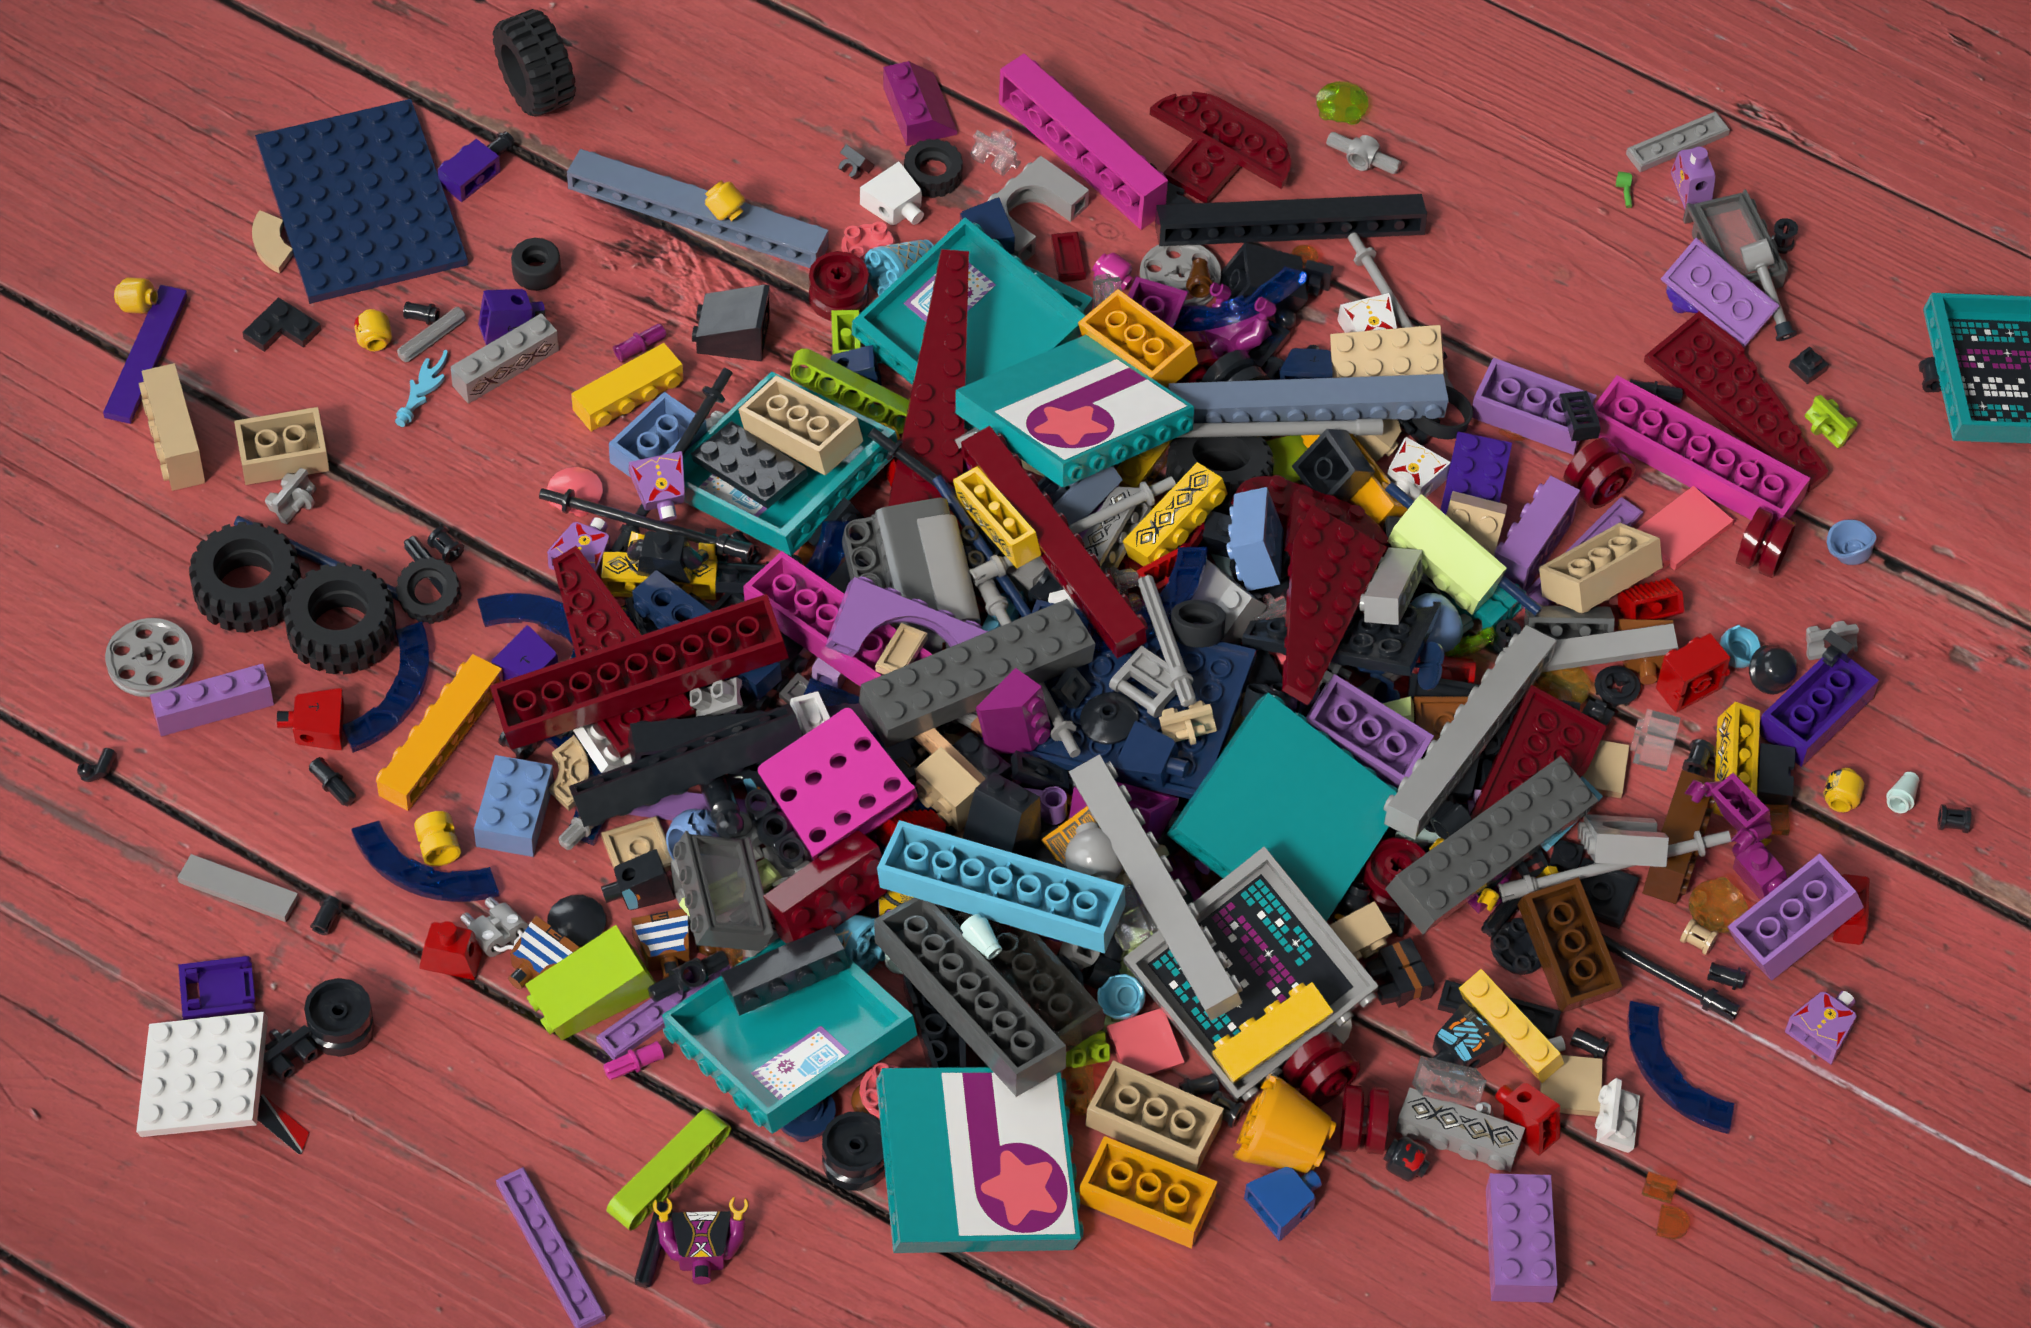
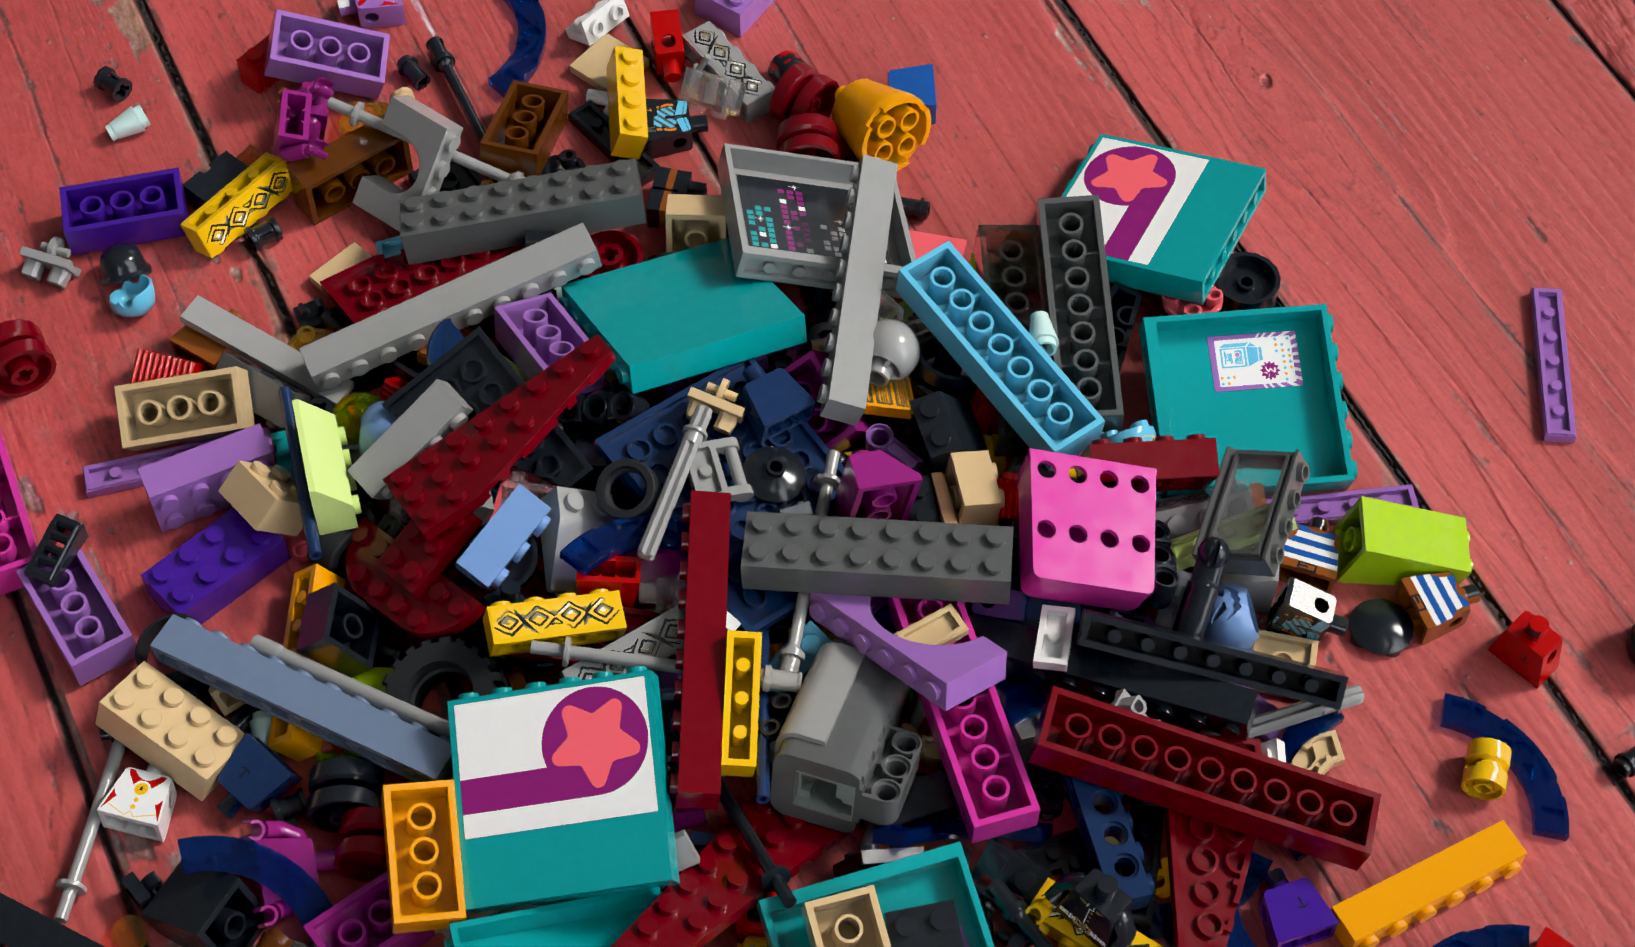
camera: 145 degrees left, 0 degrees up
(332, 781) = (1567, 898): black axle -> none
(498, 929) = (1465, 652): light grey piece -> none
(513, 806) = (1393, 758): medium blue brick -> none
(633, 1061) = (1394, 472): dark pink axle -> none
(651, 1251) = (1459, 321): black axle -> none
(668, 1169) = (1414, 366): lime beam -> none
(676, 982) = (1317, 497): black axle -> none
(701, 1238) = (1416, 296): torso -> none
(785, 970) = (1231, 428): black brick -> none
(1147, 1192) = (1018, 143): light orange brick -> none
(1154, 1116) = (968, 186): tan brick -> none
(1232, 1110) = (907, 182): black bush -> none
(1272, 1032) = (822, 161): yellow brick -> none
(1395, 921) = (648, 243): black bush -> none
(1417, 469) = (252, 613): white torso -> none
(1590, 1043) = (564, 75): black pin -> none
(1599, 472) = (94, 498): dark red wheel -> none
(1622, 677) = (280, 323): black gear -> none
(1654, 739) = (289, 249): clear brick -> none
(1686, 527) = (64, 435): coral tile -> none
(1693, 672) = (199, 275): red brick -> none
(1836, 648) = (71, 215): black tile -> none
(1843, 790) = (174, 148): yellow head -> none

